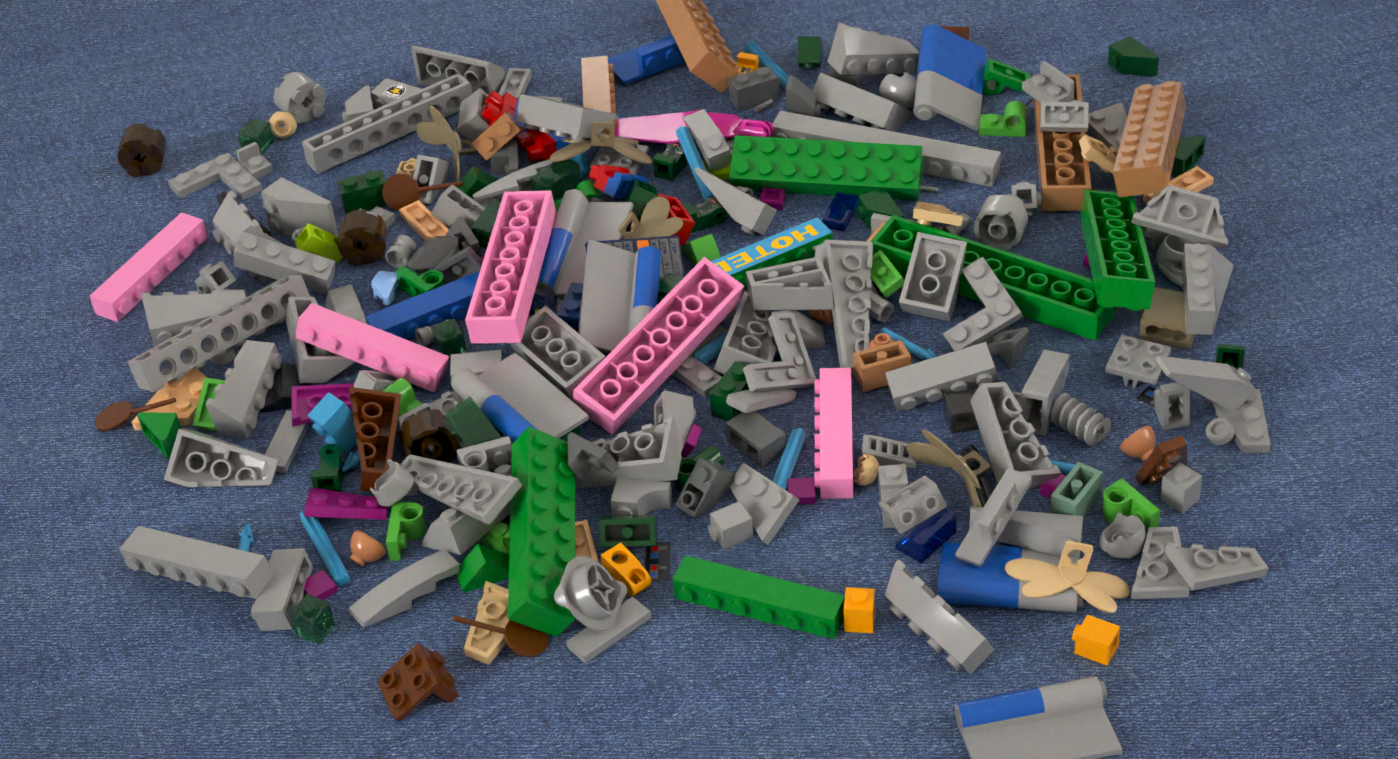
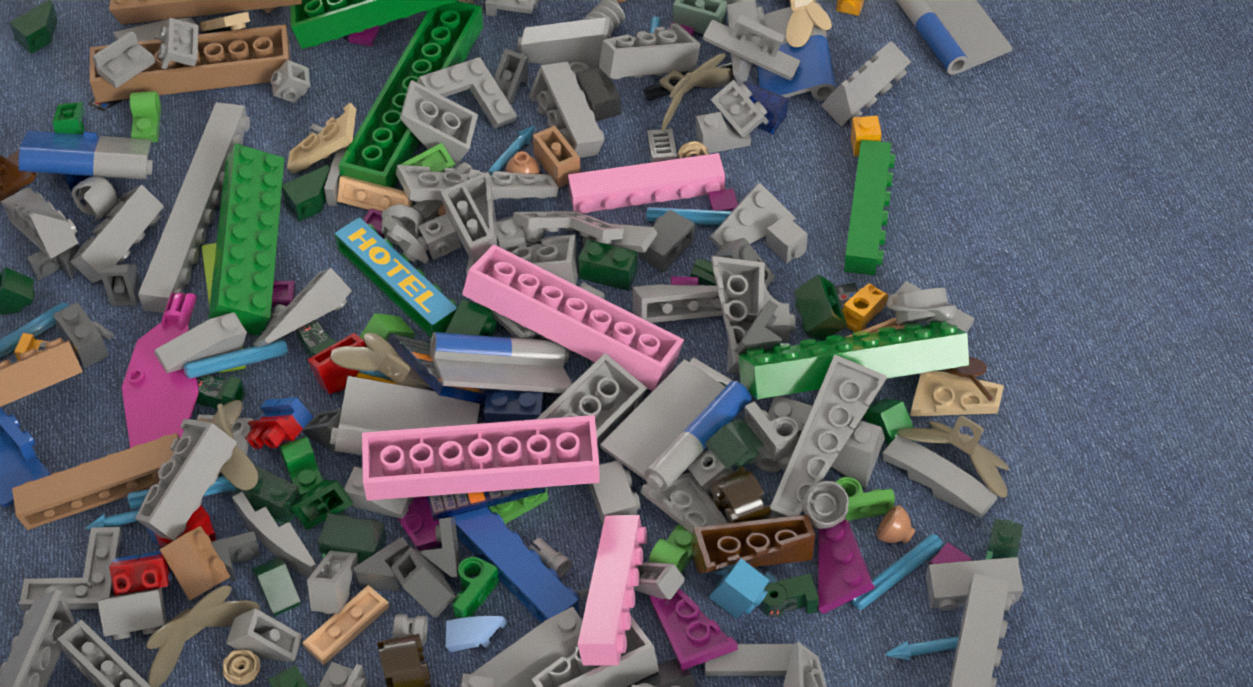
camera: 105 degrees left, 10 degrees up
(403, 190) = (294, 648): reddish brown piece -> none
(412, 620) = (982, 458): none -> dark tan piece
(414, 679) = (1050, 436): reddish brown bracket -> none
(448, 338) = (568, 532): clear green brick -> none
(640, 195) = (318, 388): dark green brick -> none
(795, 247) = (410, 245): none -> light grey slope
(840, 211) = (302, 233): clear blue tile -> none
(1001, 221) = (330, 91): light grey brick -> none

